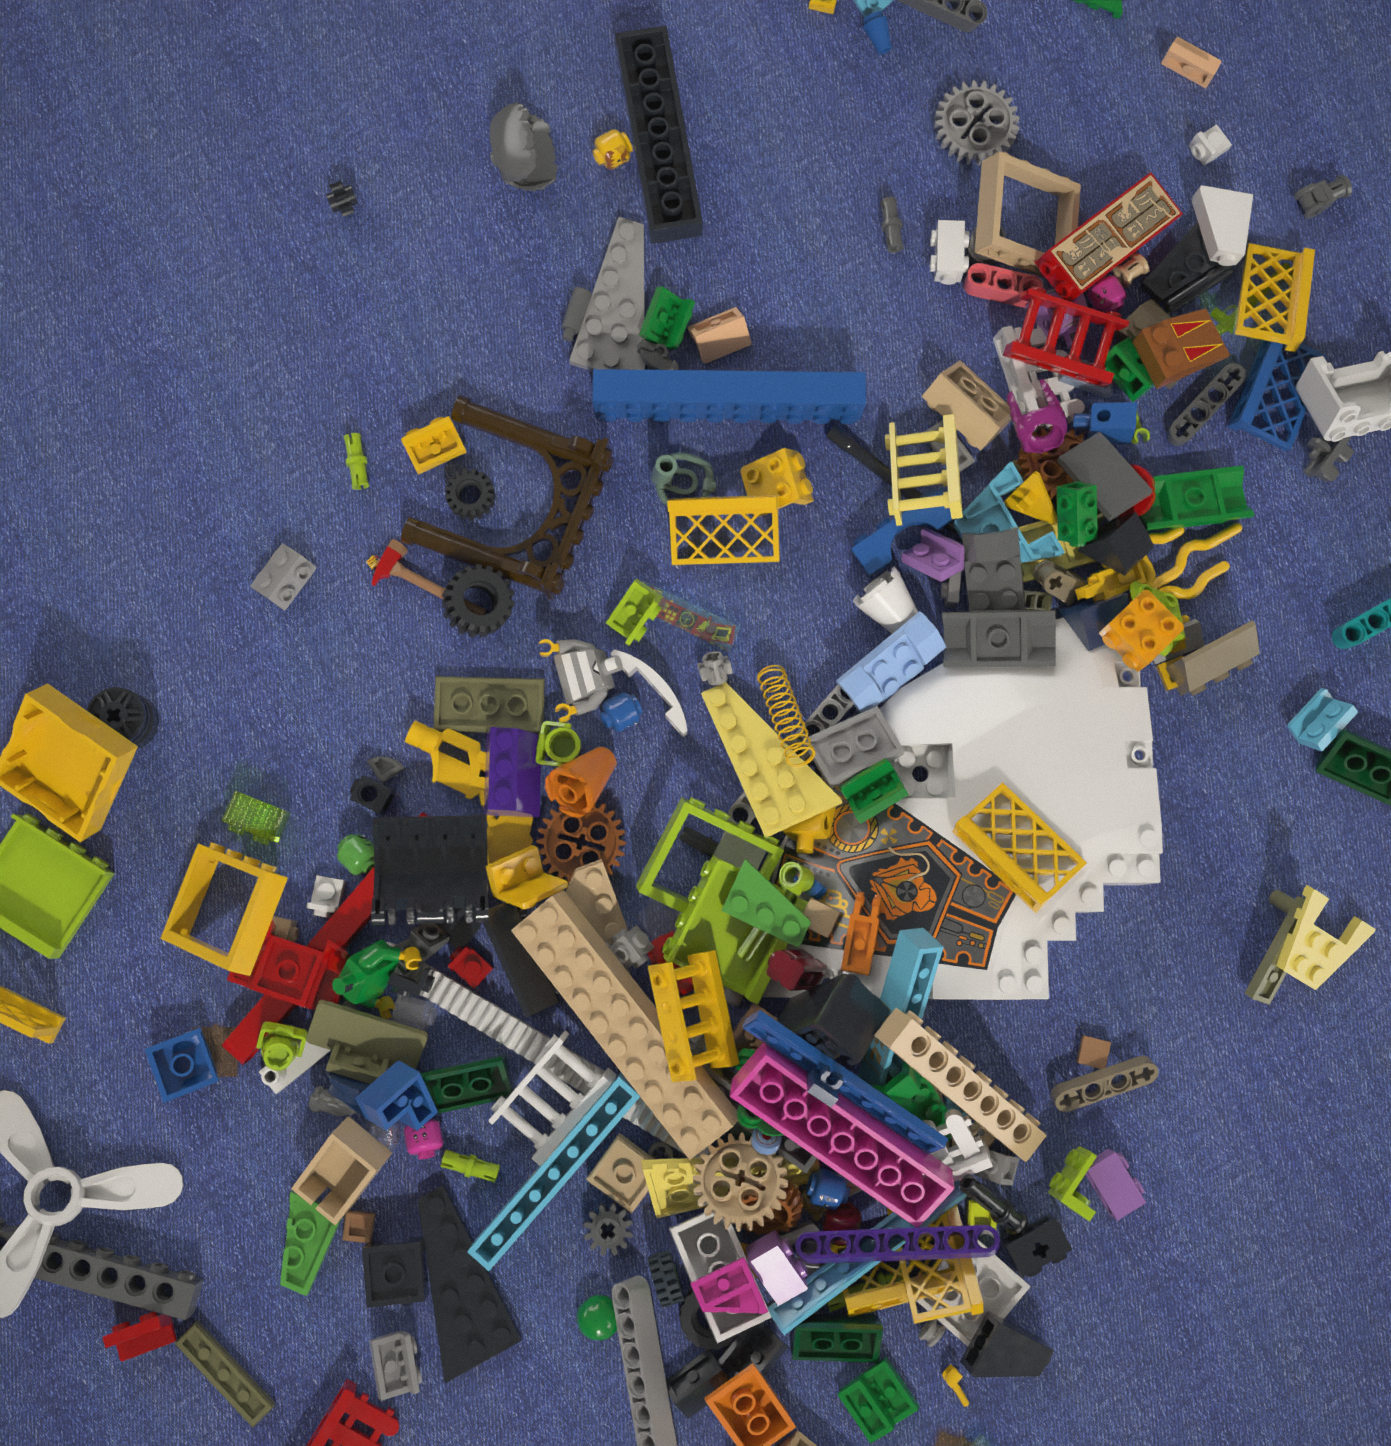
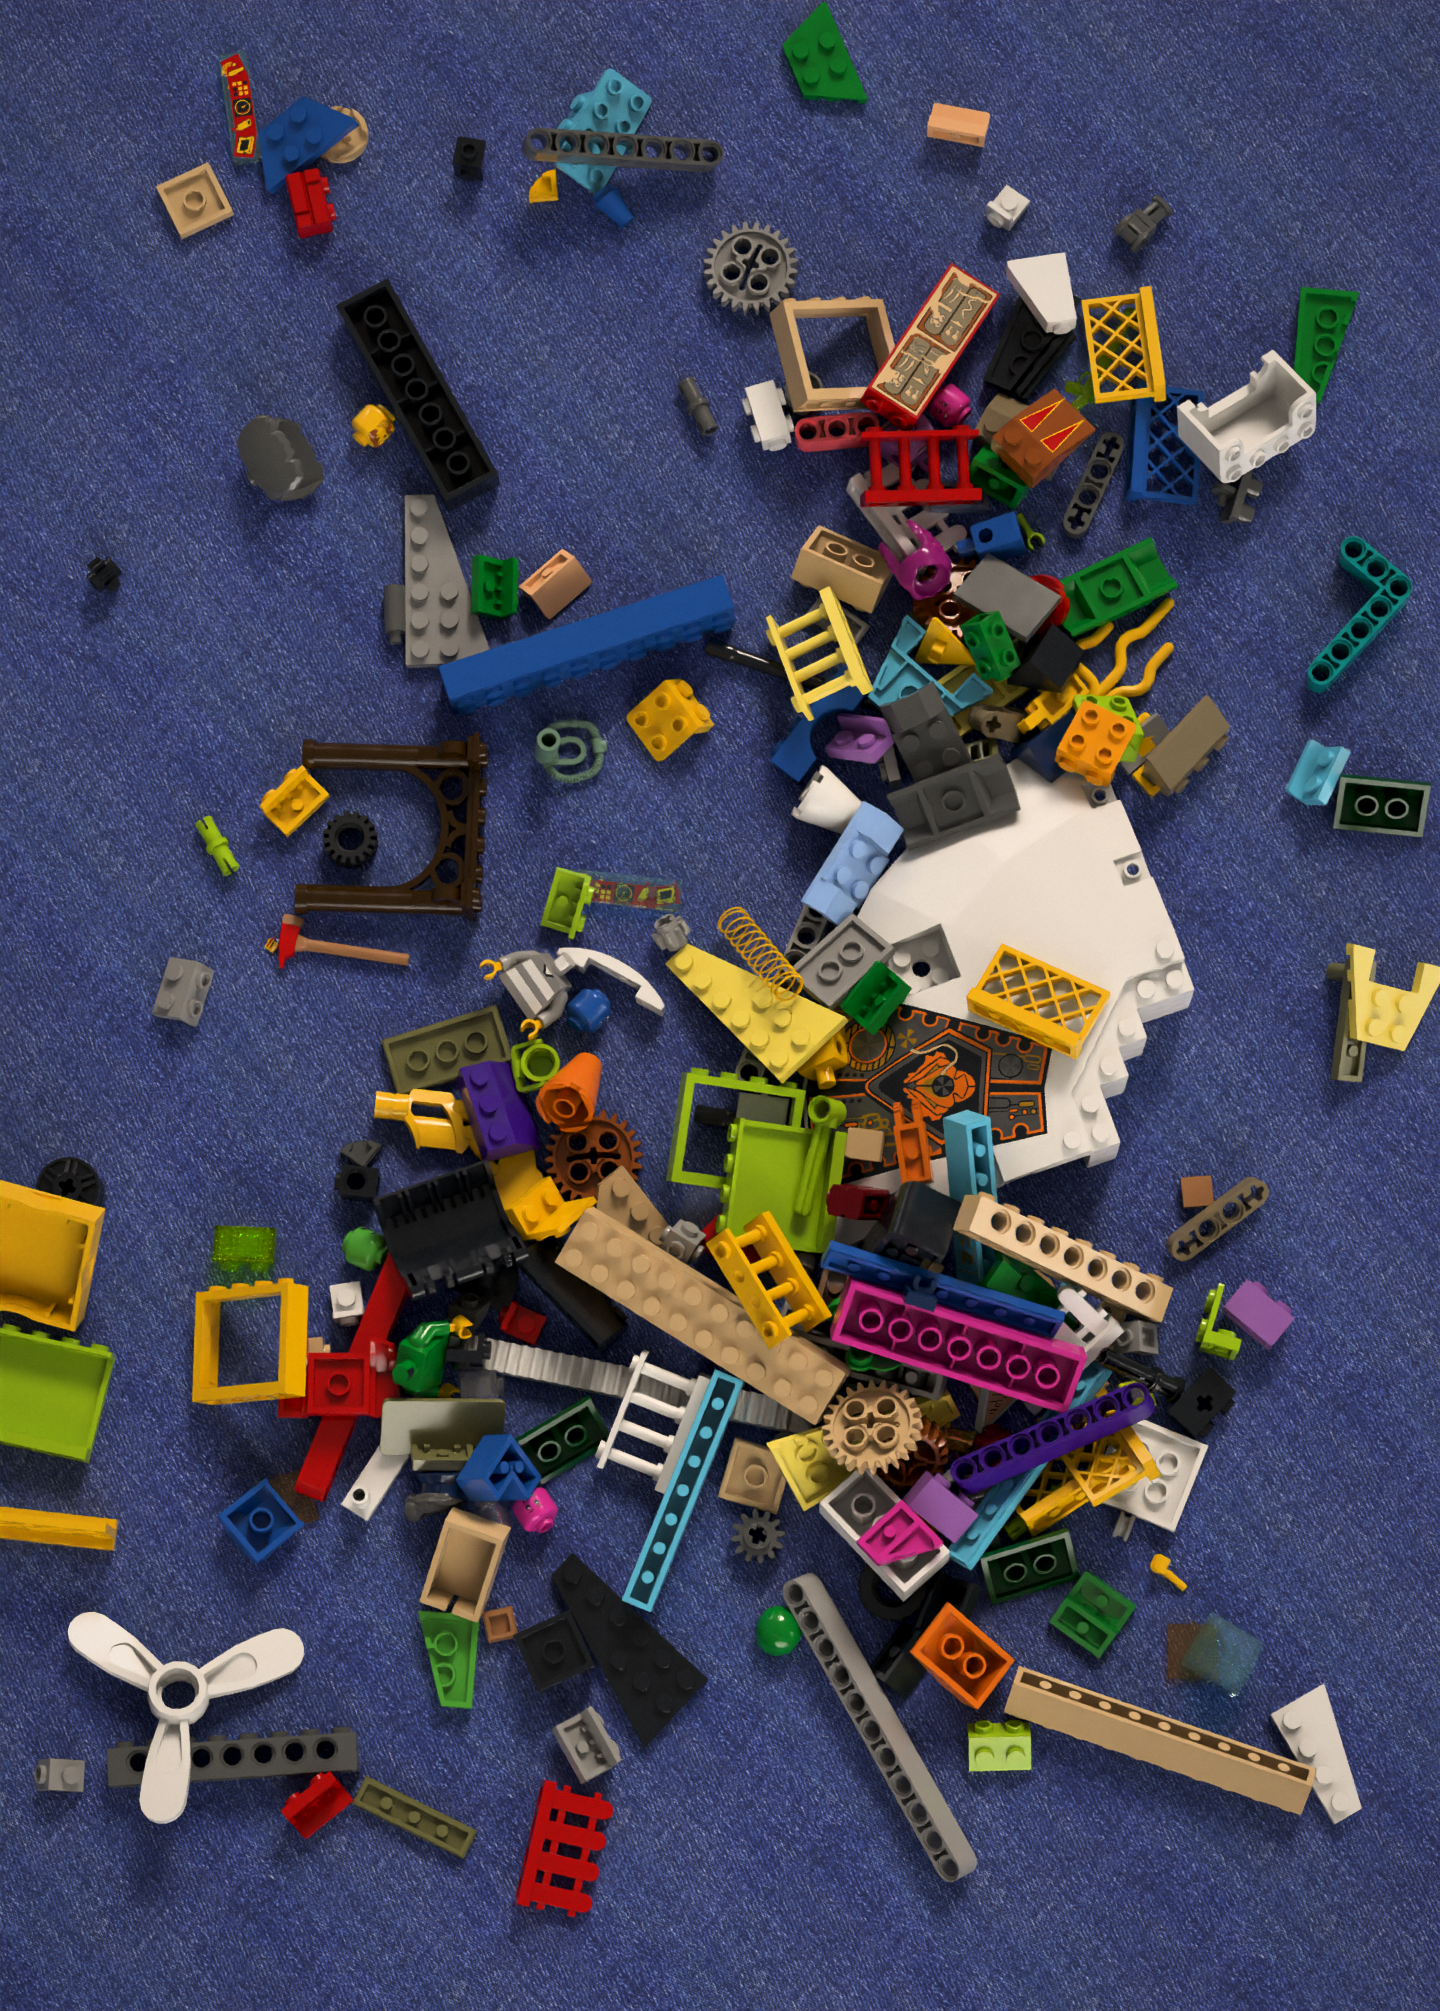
camera: 10 degrees left, 5 degrees down
(280, 1044) = (356, 1465): lime piece -> none
(470, 1166) = (594, 1524): lime pin -> none
(493, 586) = (385, 964): black tyre -> none
(656, 356) = (497, 630): dark grey piece -> none
(665, 1278) = (833, 1562): black wheel -> none
(720, 506) = (623, 761): yellow fence -> none
(763, 1143) = (884, 1380): medium blue tile -> none
(765, 907) = (804, 1151): bright green wing -> none
(817, 889) = (852, 1119): blue hand -> none
(827, 1189) = (966, 1415): blue head -> none
(1005, 1350) = (1202, 1513): black slope -> none
(1130, 270) = (966, 370): tan bush -> none

